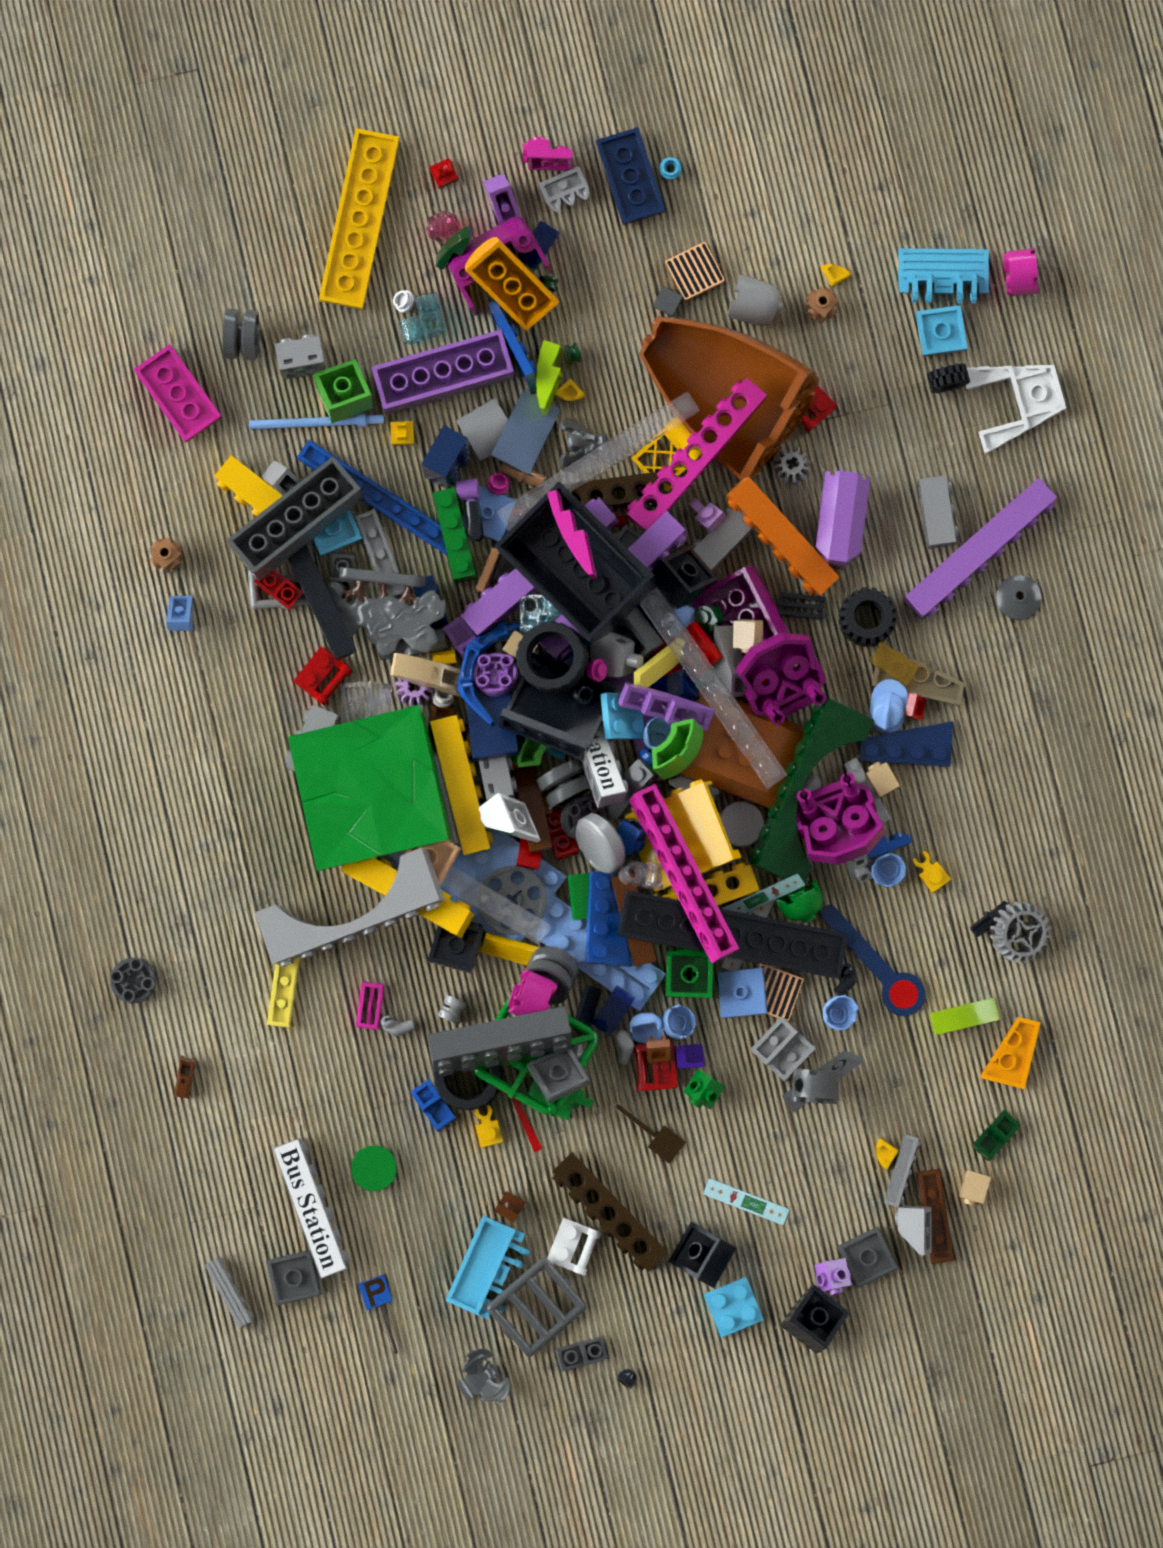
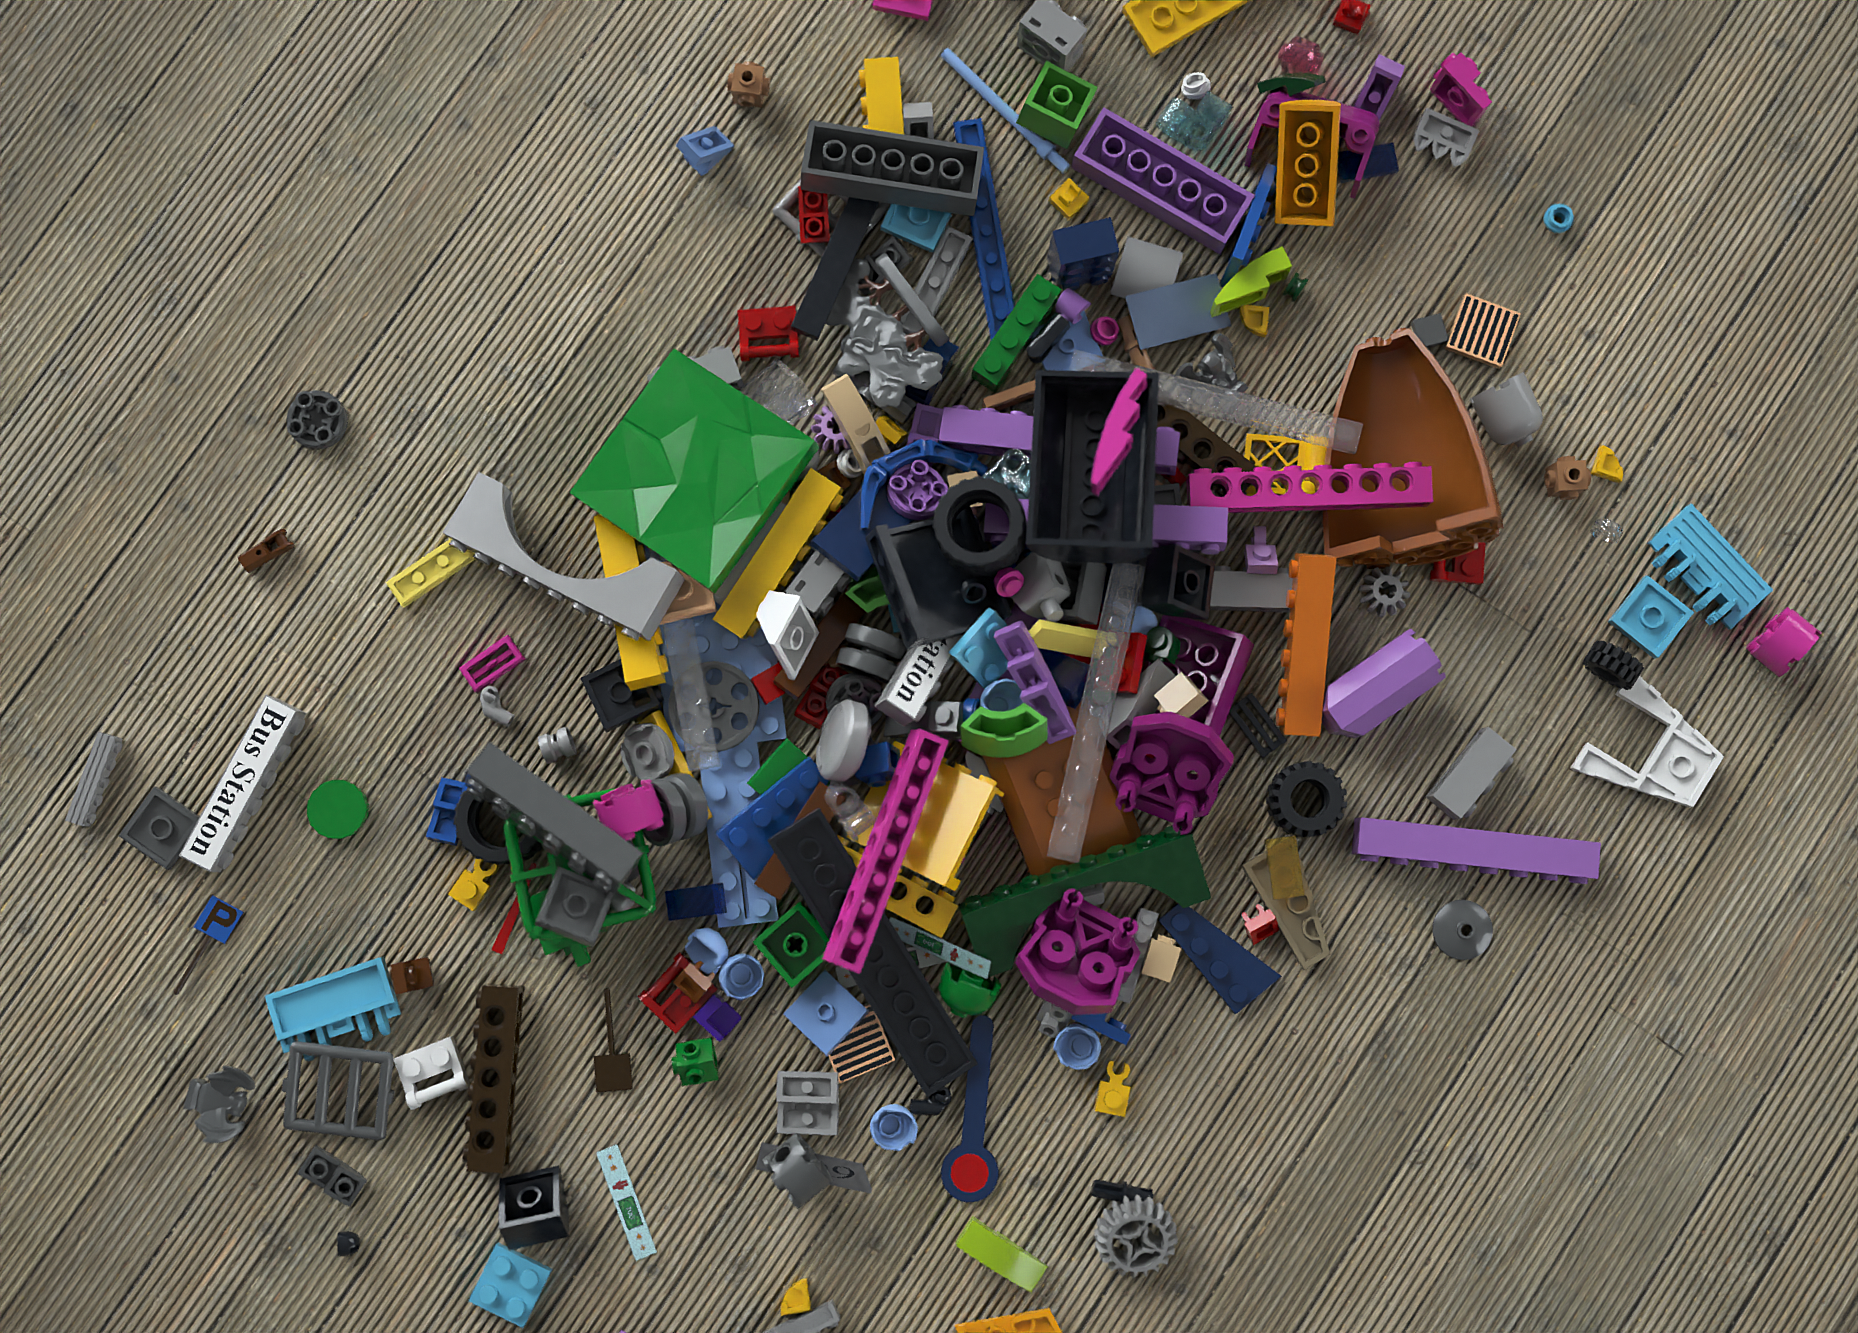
camera: 45 degrees right, 0 degrees up
(503, 961) = (647, 752): none -> light grey tile
(550, 282) = (1343, 204): dark green bush -> none
(588, 1005) = (678, 873): black slope -> none
(626, 1045) = (673, 945): light grey arm -> none
(630, 176) = (1515, 187): dark blue plate -> none
(742, 823) = (991, 860): light grey tile -> none
(871, 309) = (1607, 530): none -> clear tile
(888, 706) = (1238, 899): light blue piece -> none

